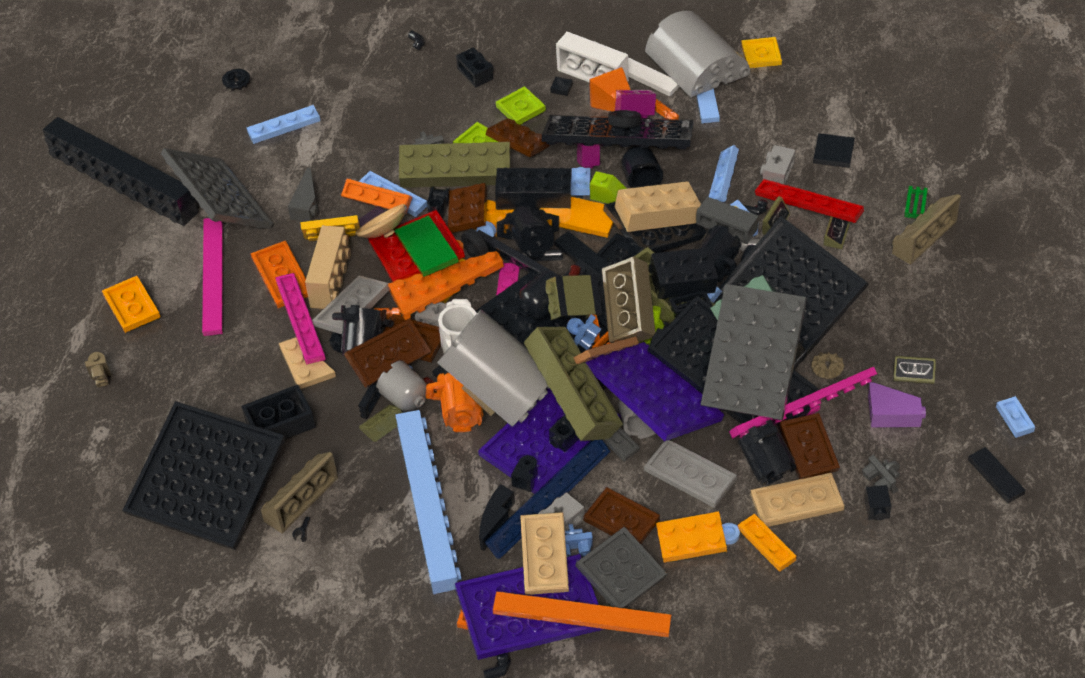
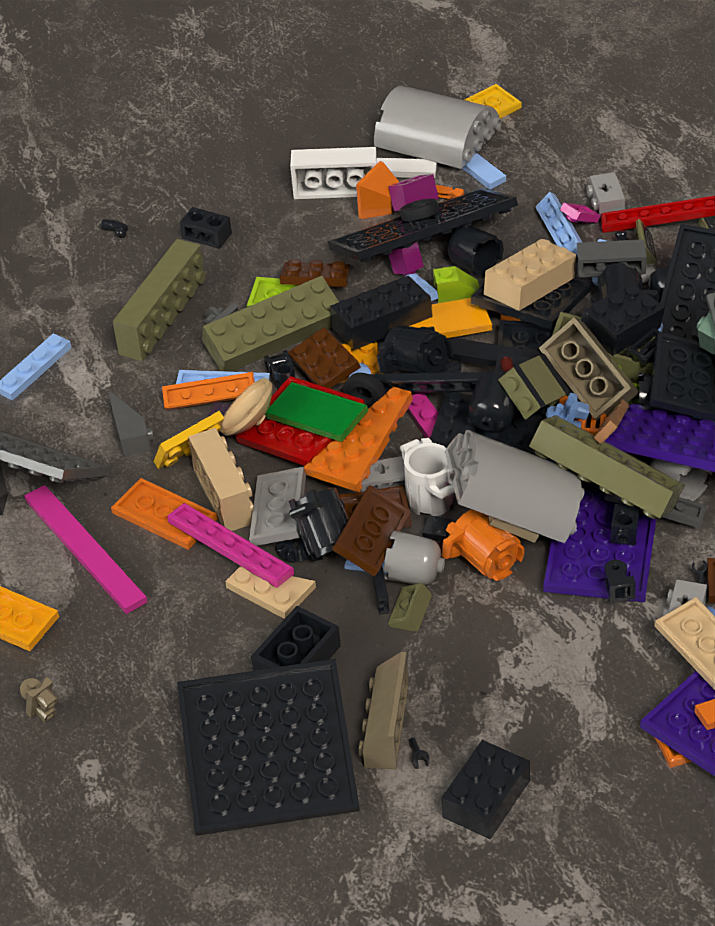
camera: 30 degrees left, 5 degrees down
(319, 578) = (485, 789): none -> black brick
(395, 110) = (159, 300): none -> olive brick
(426, 500) = (533, 660): light blue brick -> none
(495, 513) = (617, 639): black slope -> none
(520, 105) = (288, 244): lime plate -> none
(557, 486) = (654, 597): dark blue tile -> none
(561, 86) = (314, 211): black tile -> none
(594, 496) = (700, 574): none -> black hand
(743, 172) = (579, 213): none -> dark pink plate
(834, 150) = (644, 162): black tile -> none

